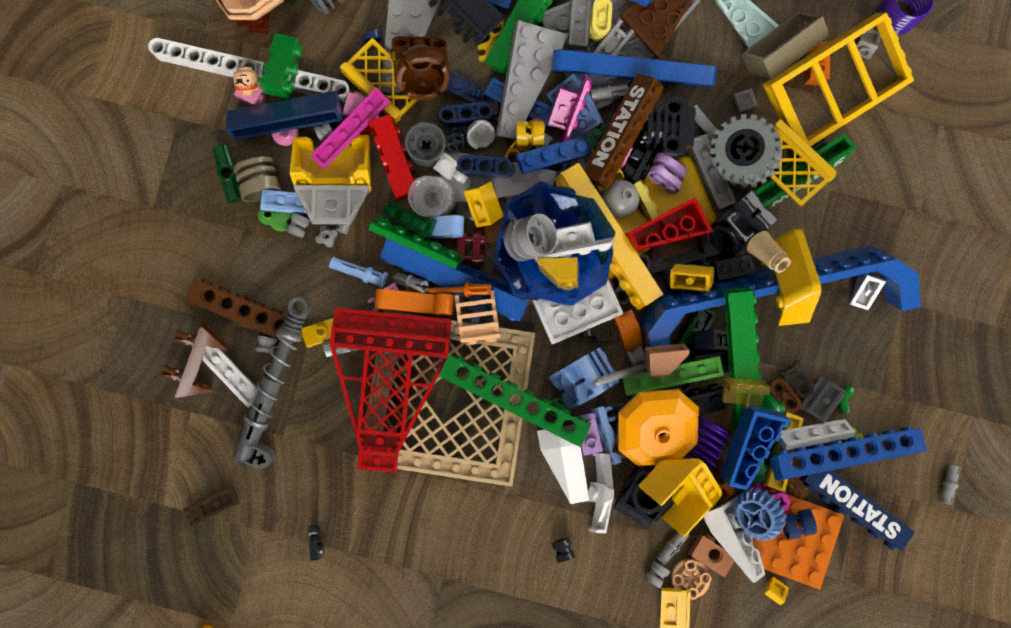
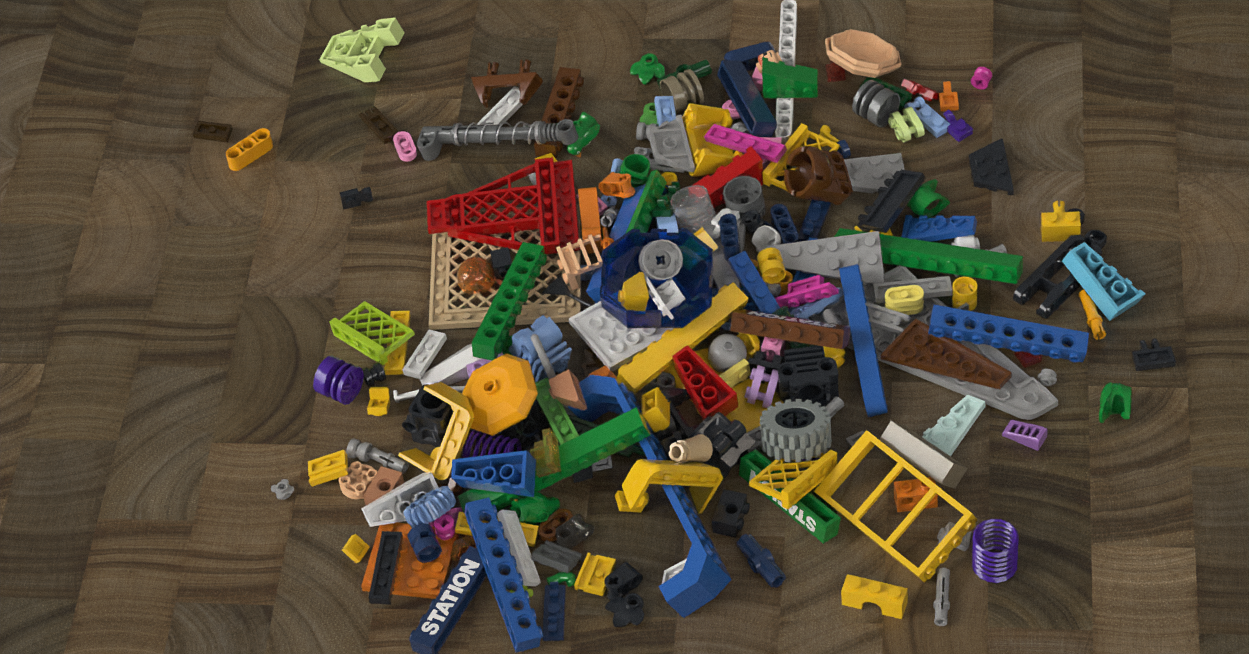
camera: 90 degrees right, 35 degrees down
(88, 517) = (359, 51): none -> yellowish green wedge
(206, 211) = (648, 70): none -> green plate
(217, 100) = (749, 54): none -> dark blue beam
(252, 481) = (405, 146): none -> bright pink plate
(283, 290) = (587, 130): none -> green animal
(343, 51) = (825, 132): none -> yellow hand
(360, 247) = (638, 167): none -> green helmet
(366, 216) = (669, 178): none -> yellow tile
(378, 268) = (617, 185): none -> orange piece
(456, 401) = (501, 262): none -> black brick
(463, 430) = (475, 275): none -> clear orange cylinder
(495, 349) = (559, 287): none -> black piece
(523, 556) = (361, 340): none -> lime fence
(525, 521) = (397, 358): none -> yellow plate
(547, 495) = (424, 354): none -> white plate
(571, 588) = (338, 380): none -> dark purple wheel
(601, 548) = (379, 401): none -> yellow bracket
(769, 319) = (623, 504): none -> yellow bracket
(815, 229) = (730, 513): none -> black brick
(816, 565) = (386, 568): none -> black gear
(847, 367) = (593, 574): none -> yellow plate
(860, 341) = (622, 581): none -> black piece
(861, 215) = (761, 560): none -> dark blue piece
(879, 411) = (554, 612): none -> dark blue plate
(892, 347) = (625, 611): none -> black plate
(926, 115) = (888, 597): none -> yellow arch
(936, 69) = (941, 614): none -> light grey pin

